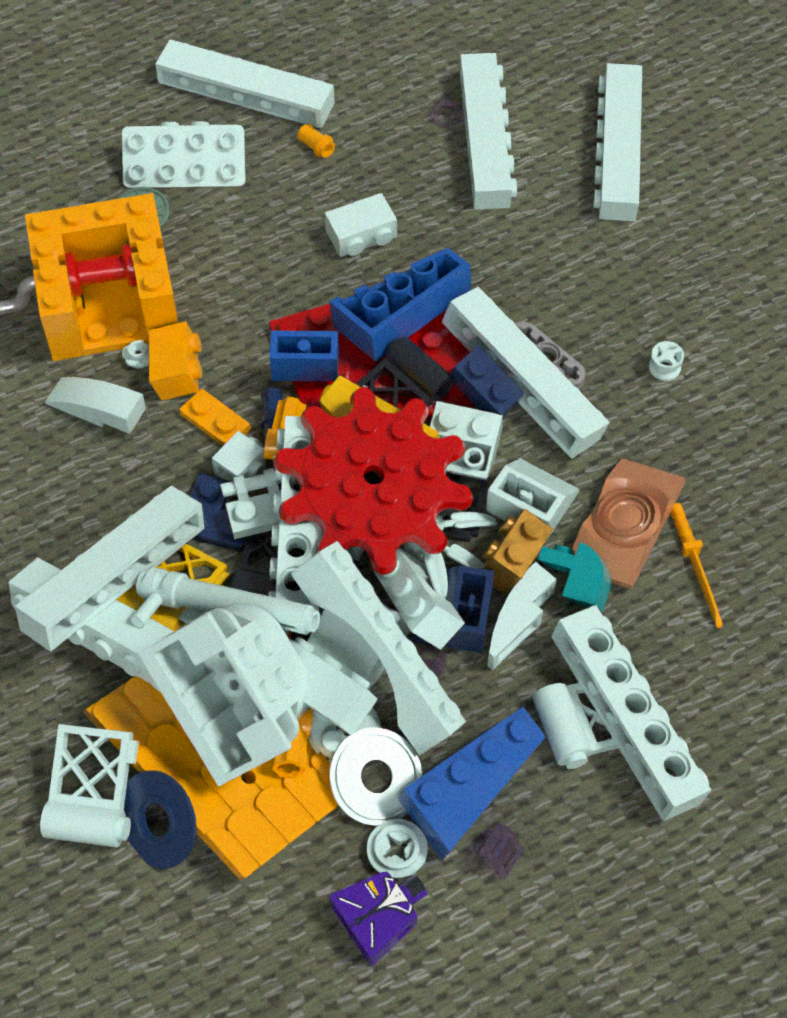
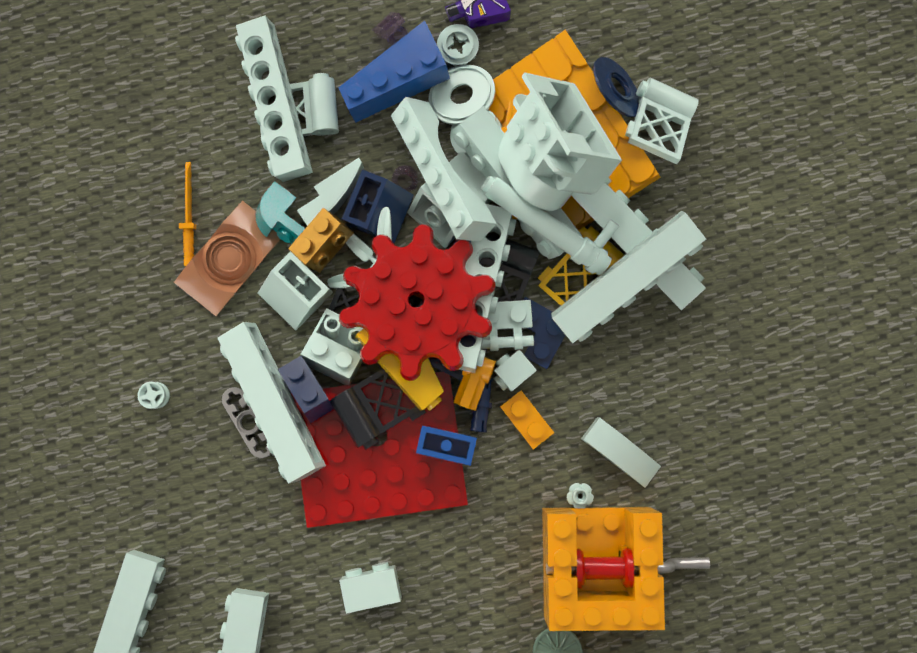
camera: 165 degrees left, 25 degrees up
(174, 360) = (552, 476): light orange brick -> none
(401, 302) = (361, 480): blue wedge -> none
(418, 604) = (402, 191): light aqua arch -> none

